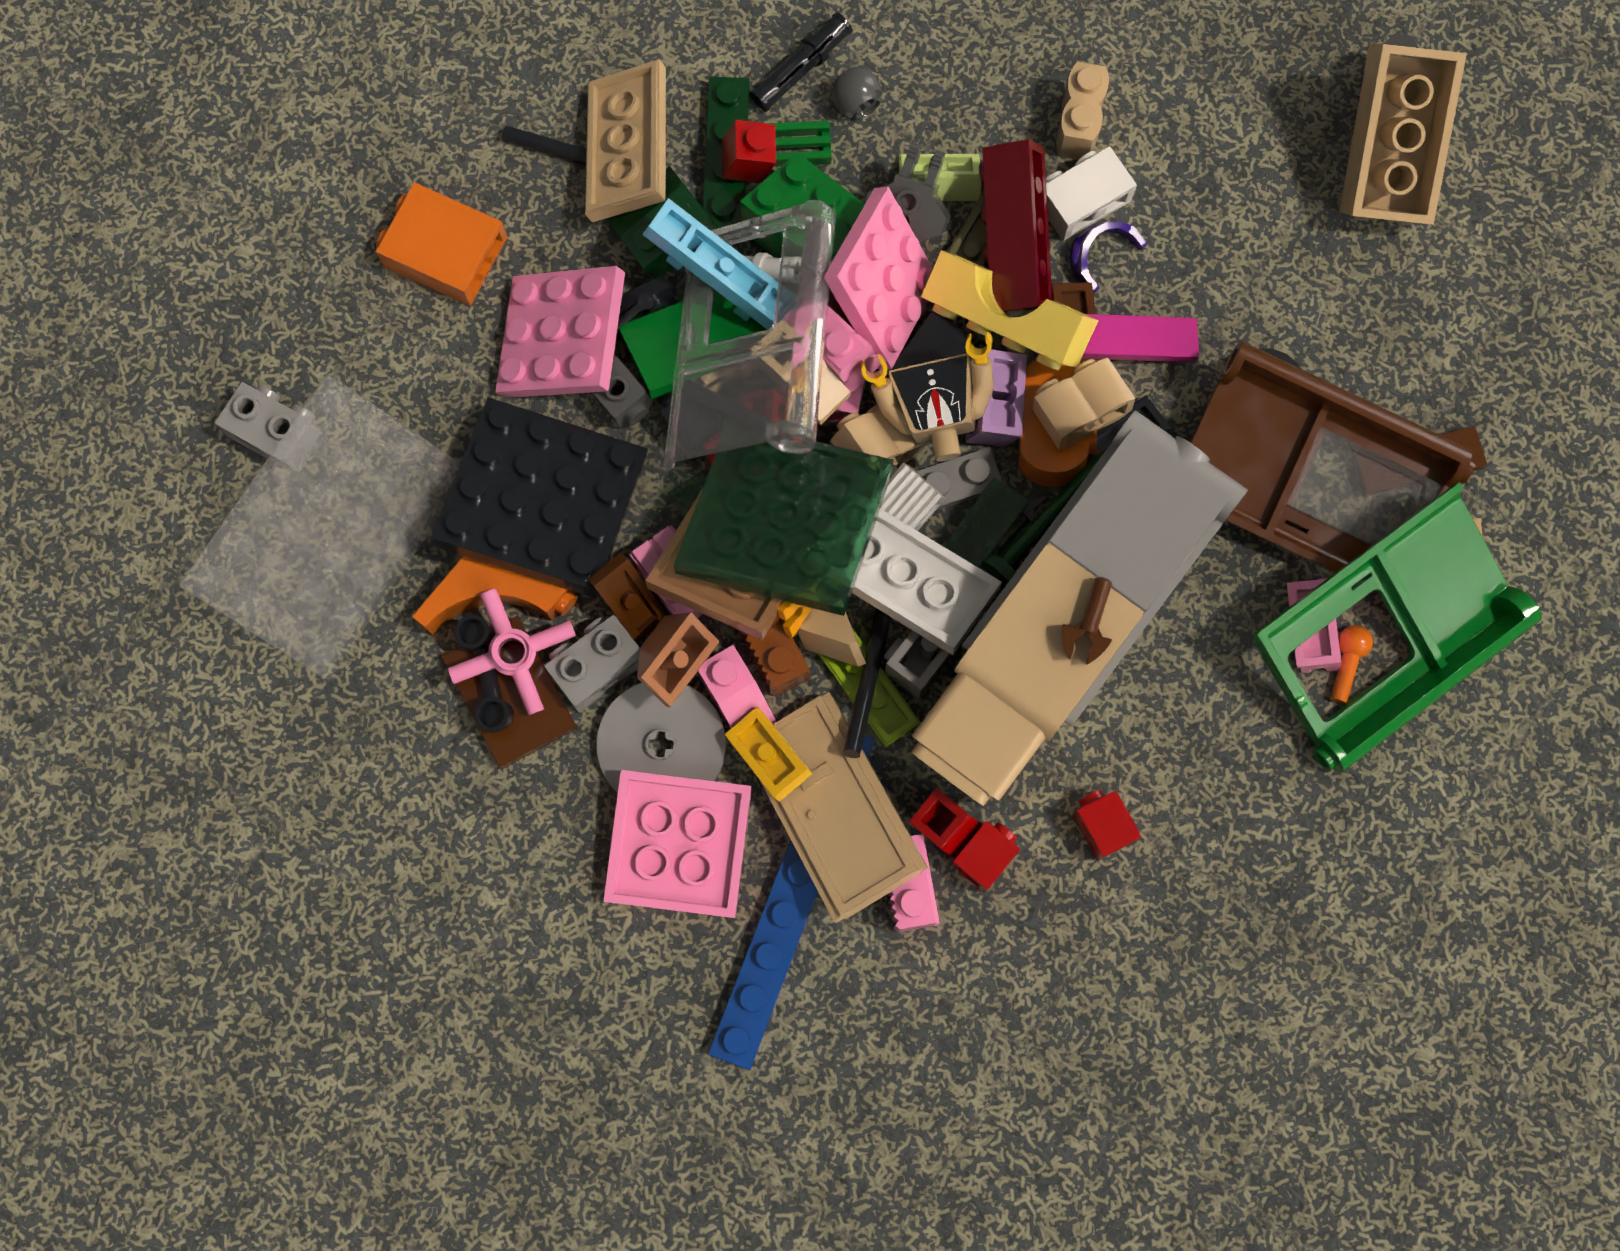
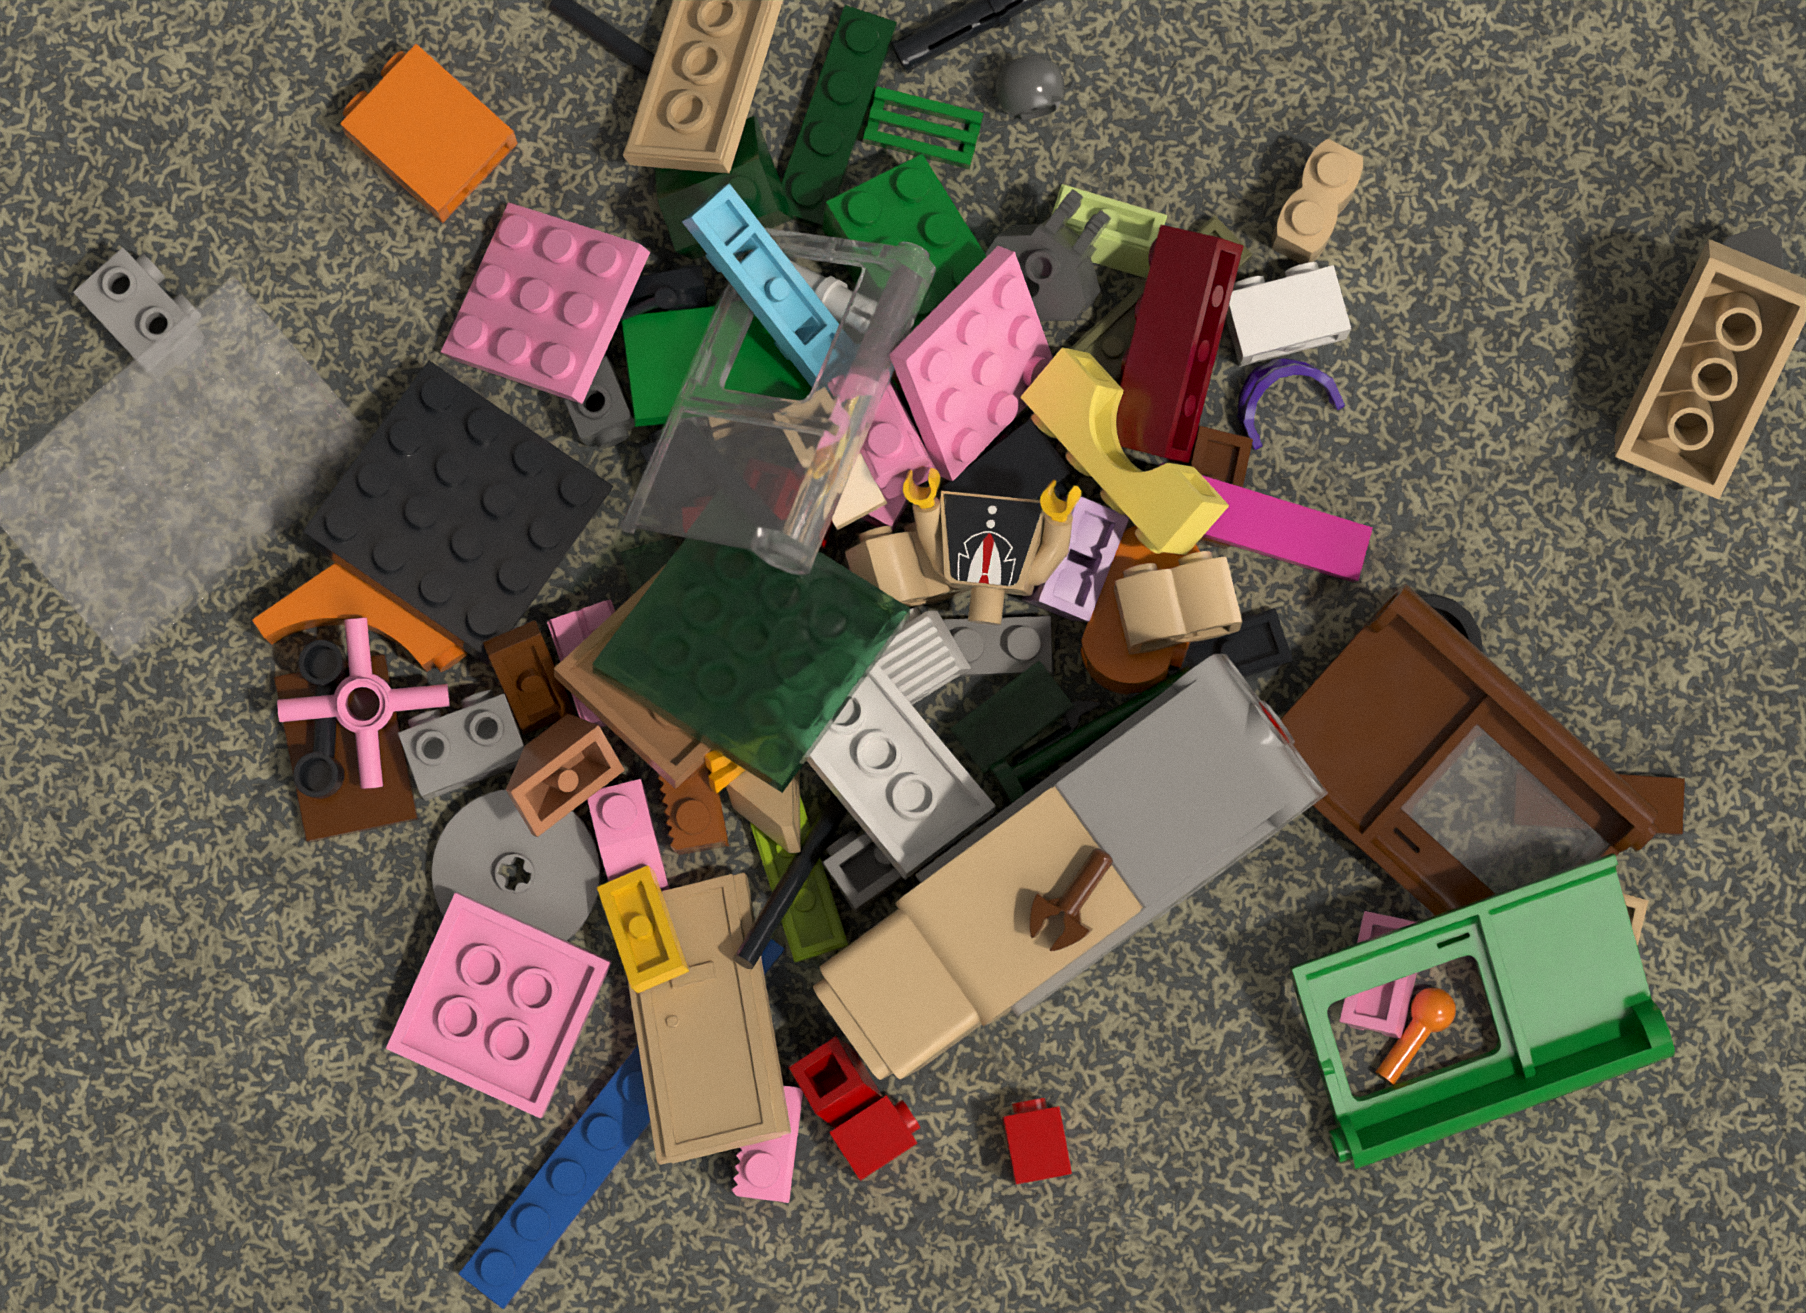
camera: 15 degrees right, 5 degrees up
(748, 151) = (860, 133): red brick -> none

